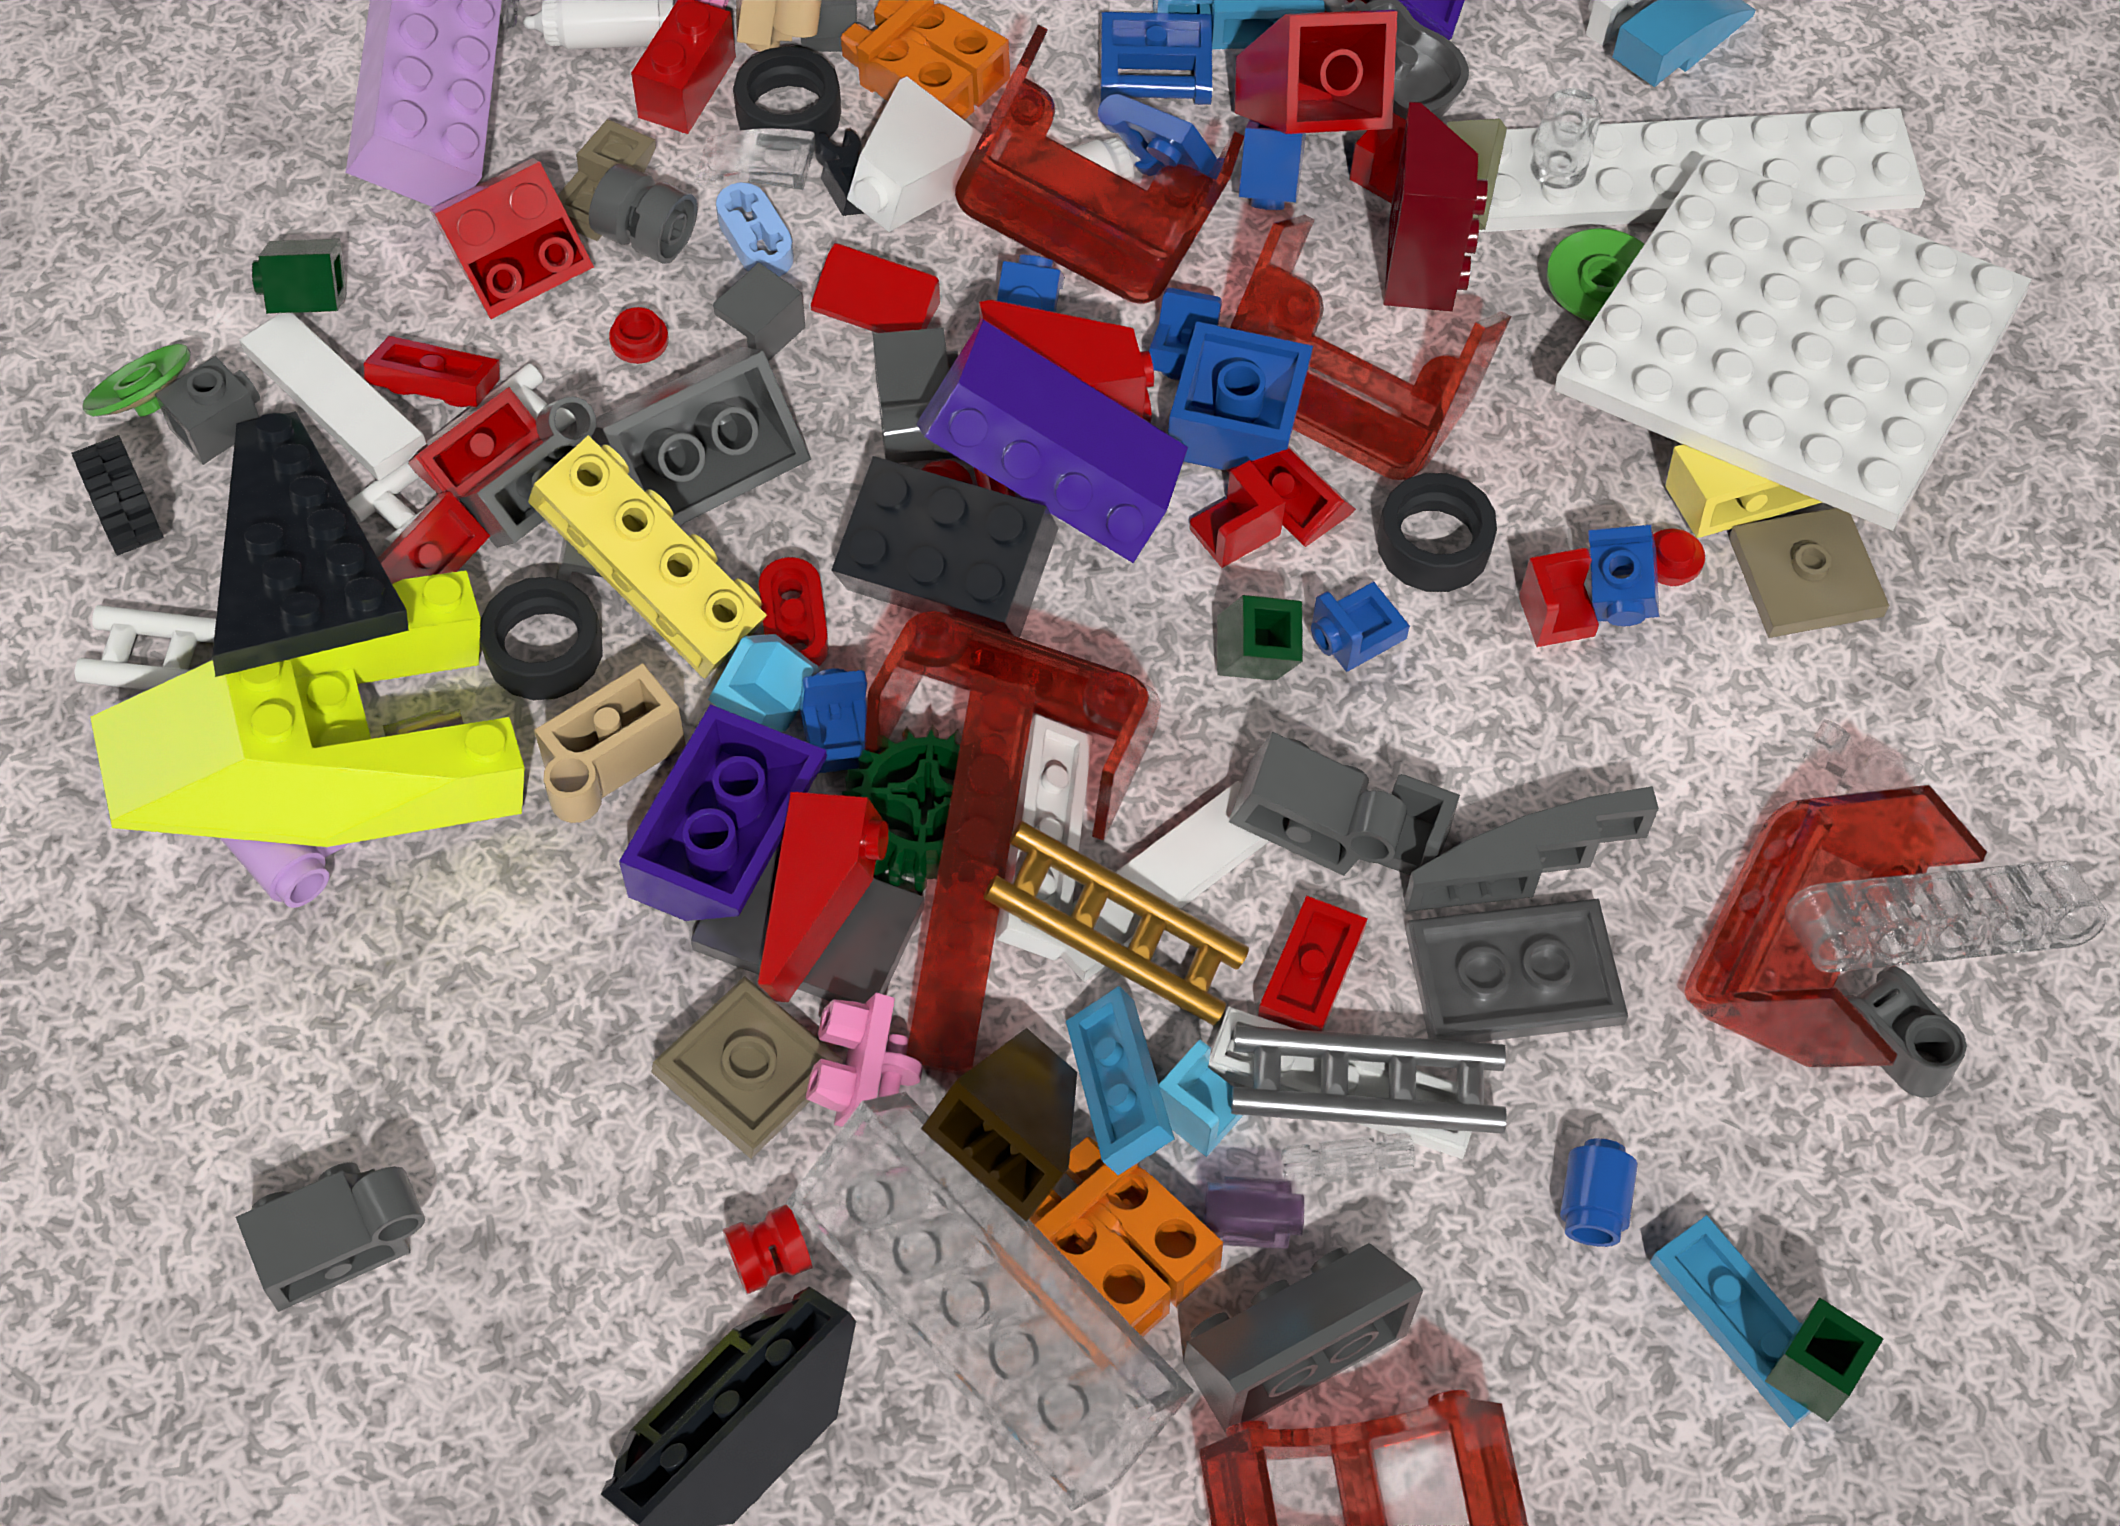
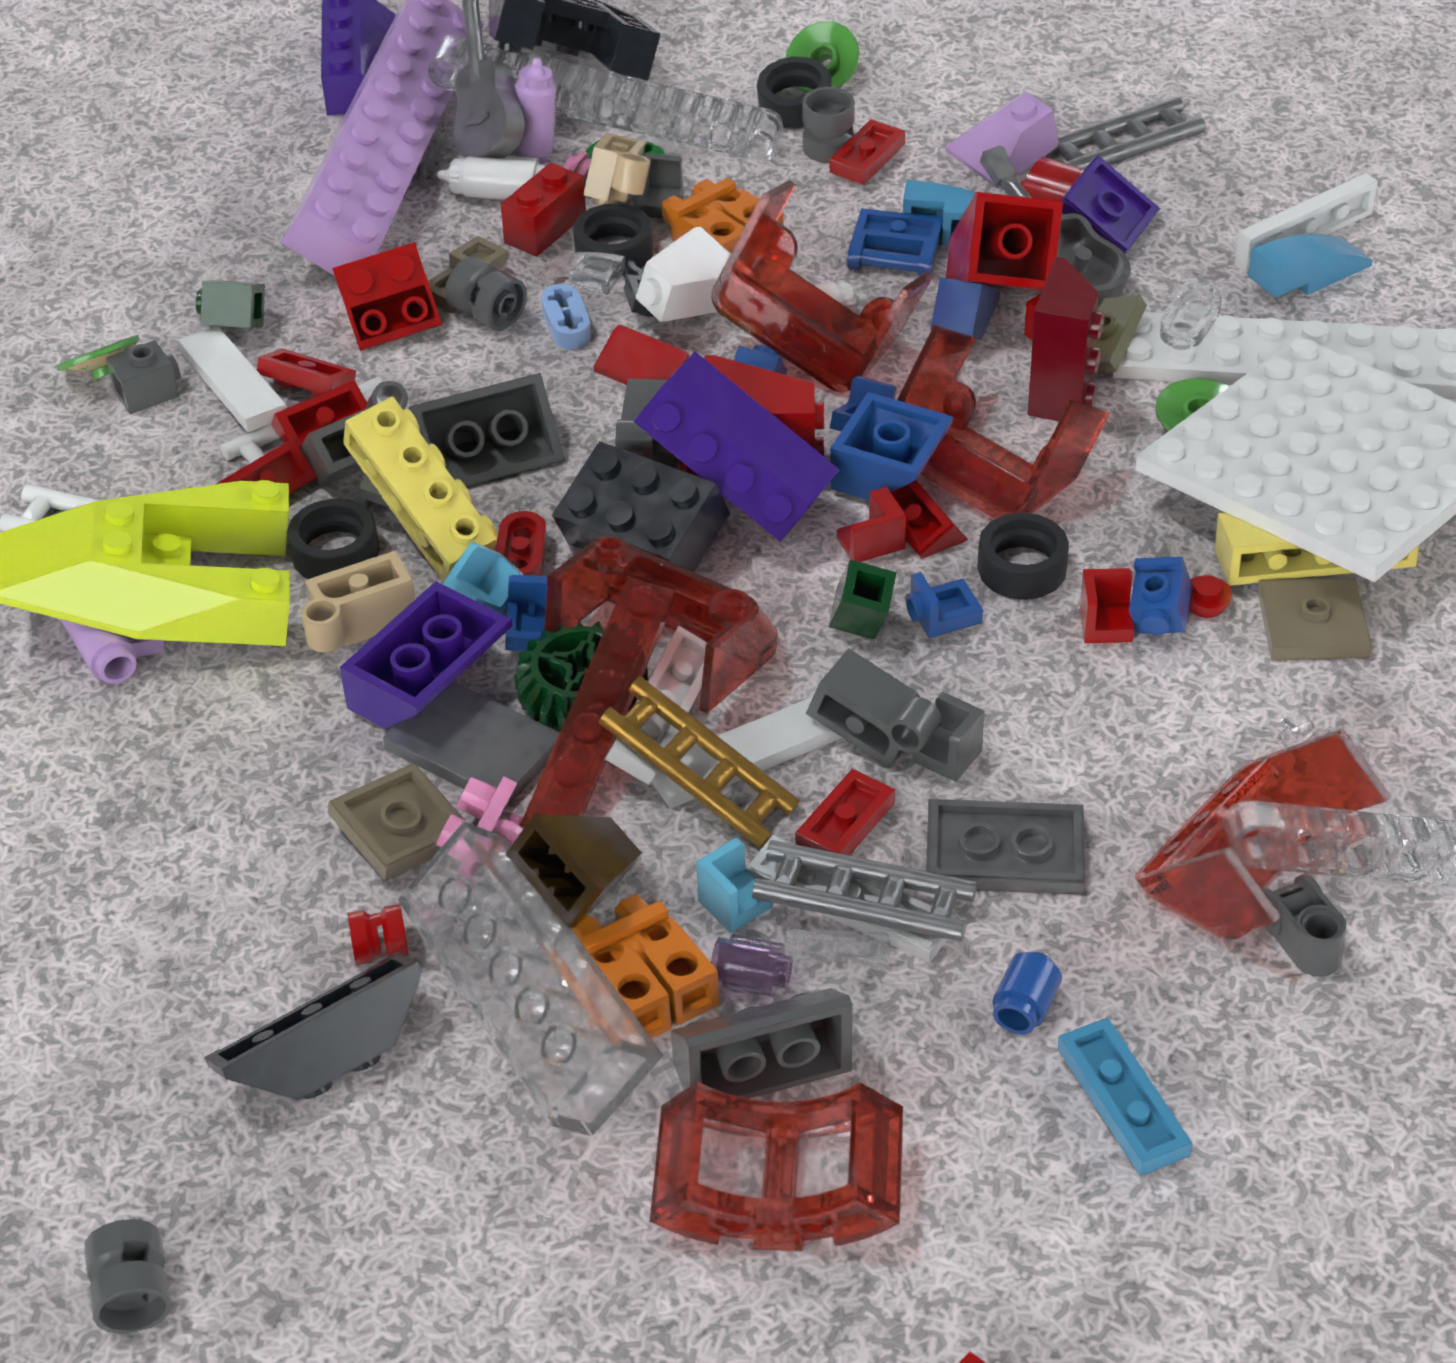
camera: 15 degrees right, 15 degrees down
(117, 495) = (61, 414): black tyre -> none
(293, 556) = (166, 456): black wing -> none
(330, 1230) = (66, 876): dark grey hinge -> none
(638, 336) = (461, 368): red plate -> none
(763, 310) = (557, 359): dark grey panel -> none
(820, 878) = (480, 703): red slope -> none
(1119, 1081) = (669, 859): dark azure plate -> none
(1155, 136) = (872, 276): blue plate -> none
(1511, 857) = (1017, 765): dark grey slope -> none
(1824, 1359) = (1164, 1108): dark green brick -> none

